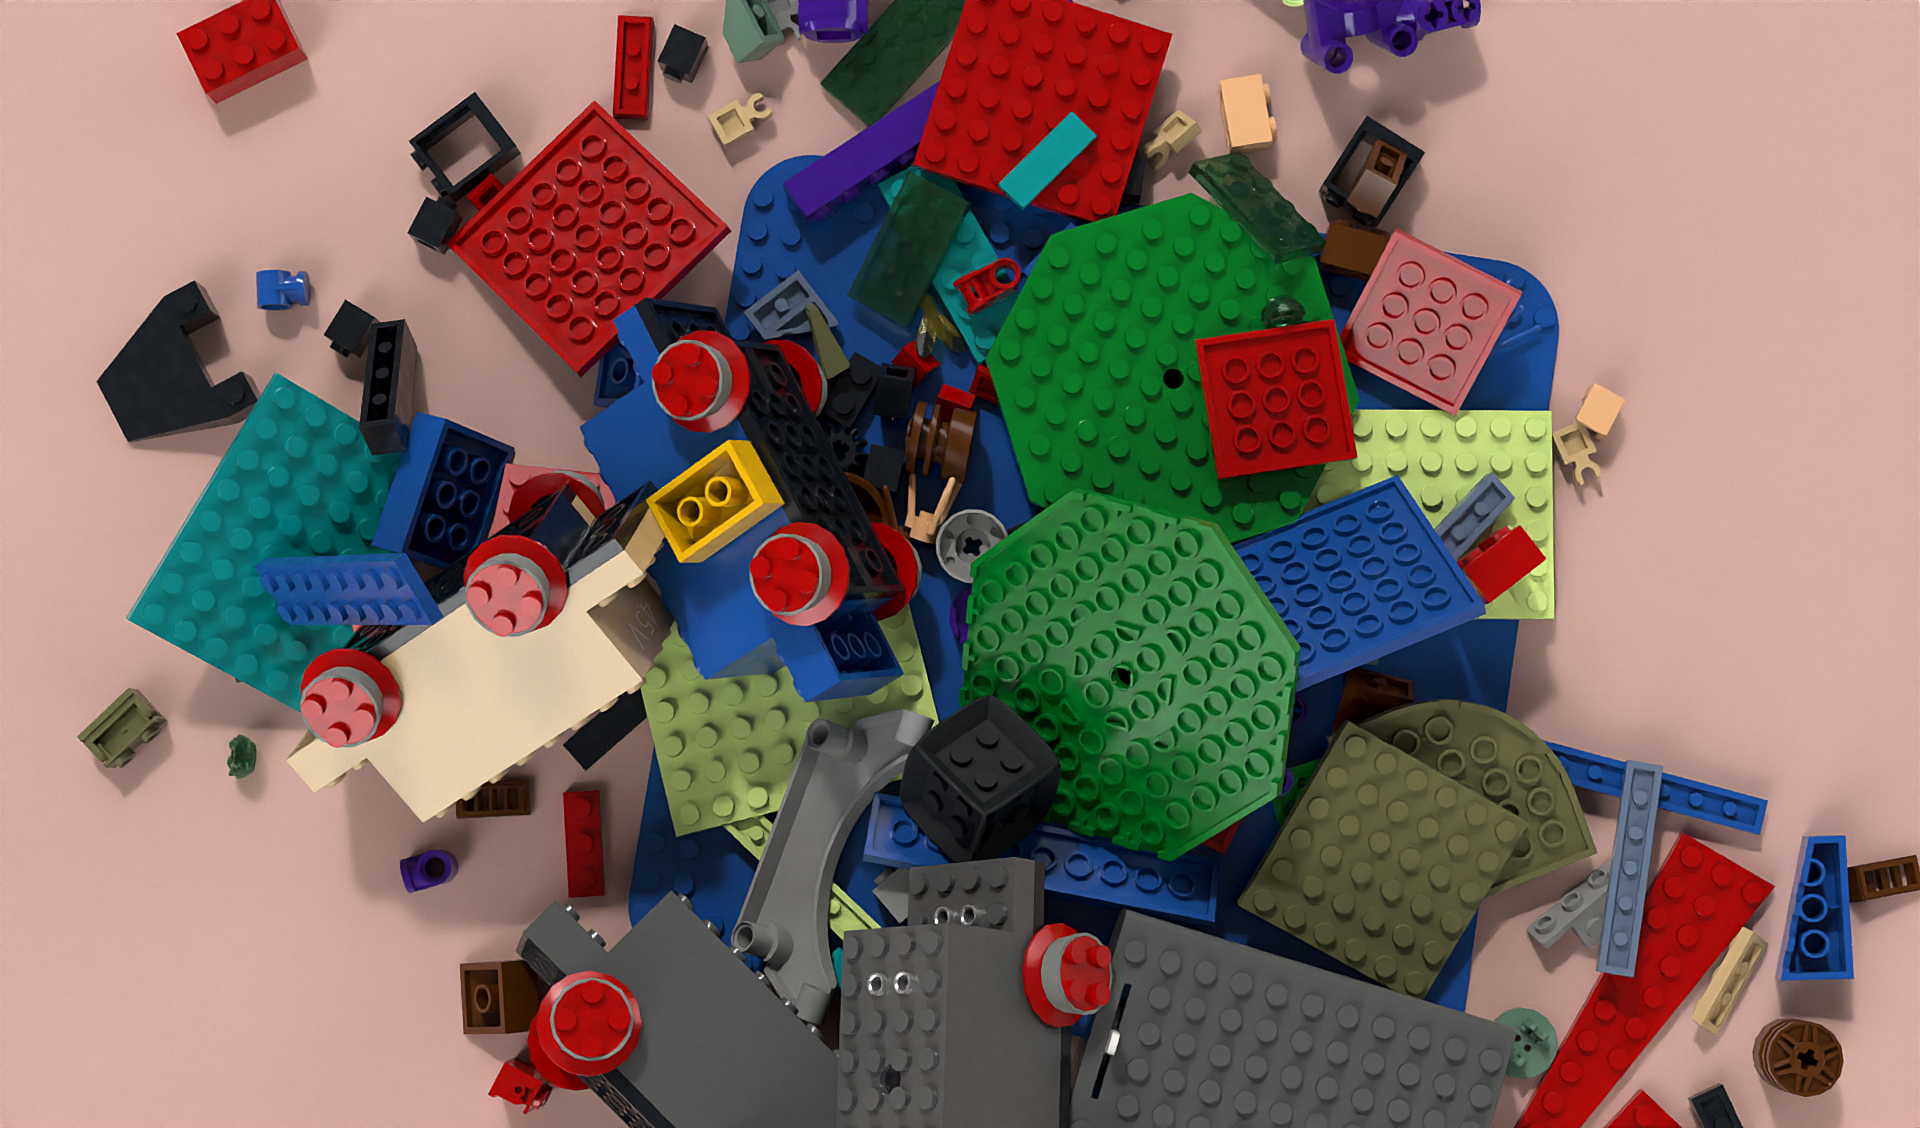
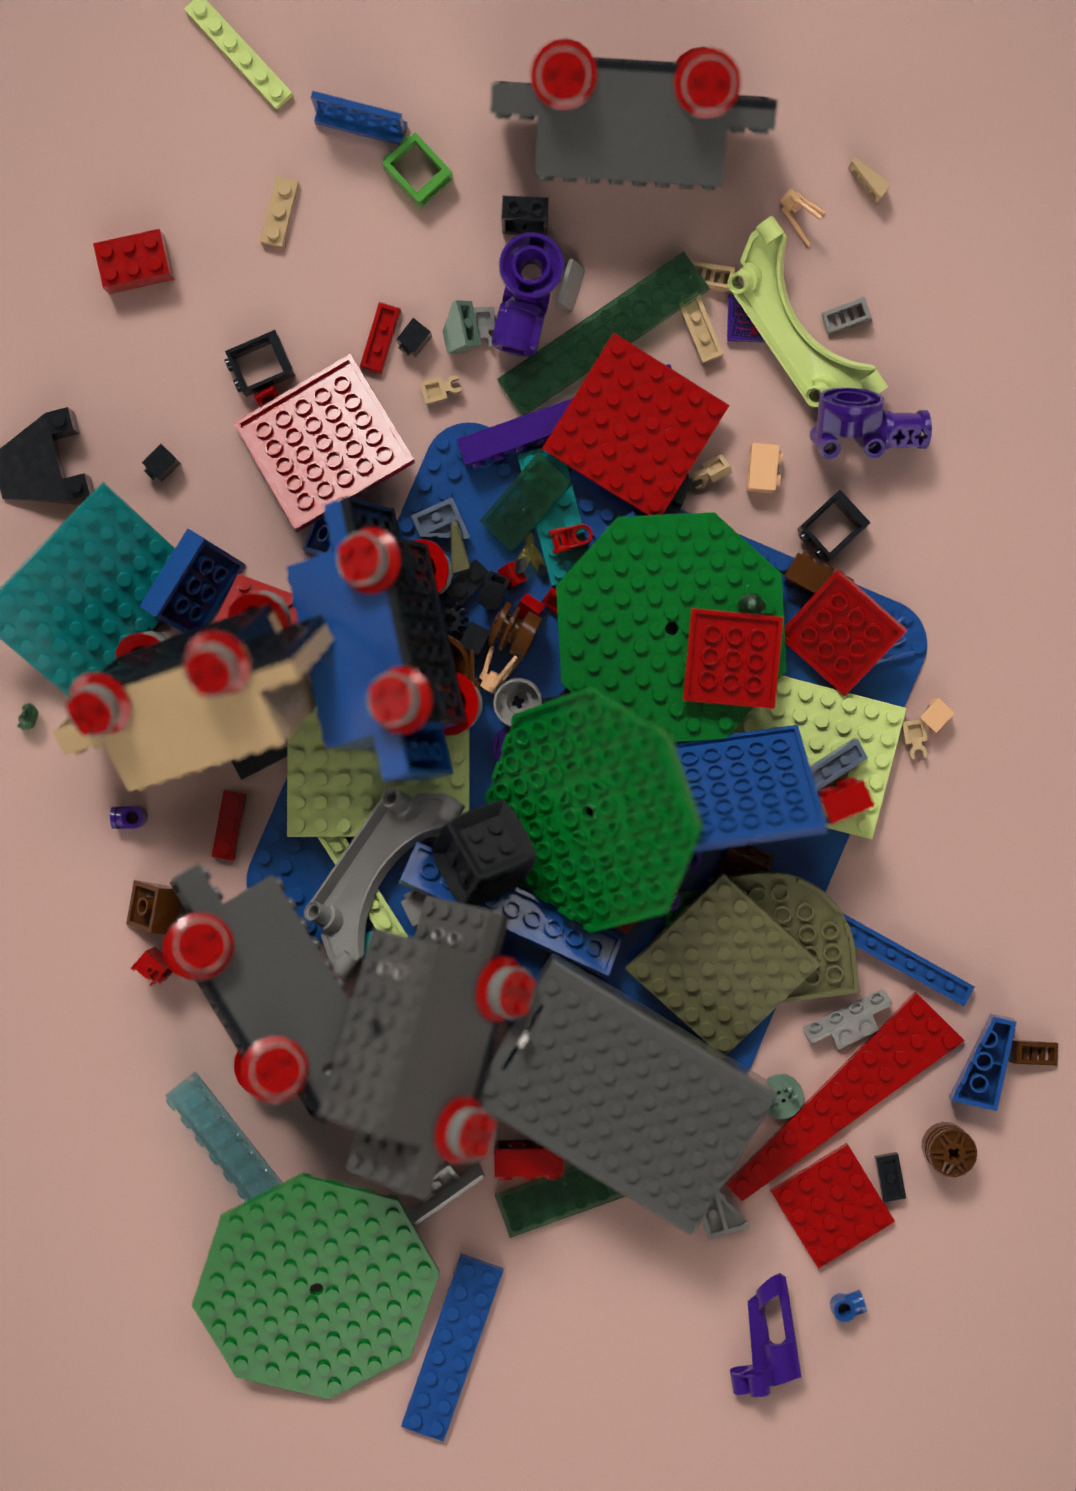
camera: 15 degrees right, 5 degrees up
(279, 289) = (120, 426): blue piece -> none
(348, 590) = (114, 636): blue plate -> none
(388, 387) = (173, 507): black brick -> none
(435, 224) = (230, 408): black brick -> none
(523, 801) = (197, 790): reddish brown slope -> none
(714, 501) = (358, 639): yellow brick -> none
(1047, 160) = (627, 468): teal tile -> none
(1257, 207) = (754, 531): clear green plate -> none
(1377, 178) = (835, 532): reddish brown slope -> none
(1629, 868) = (876, 1008): sand blue plate -> none
(1729, 980) = (919, 1091): tan plate -> none

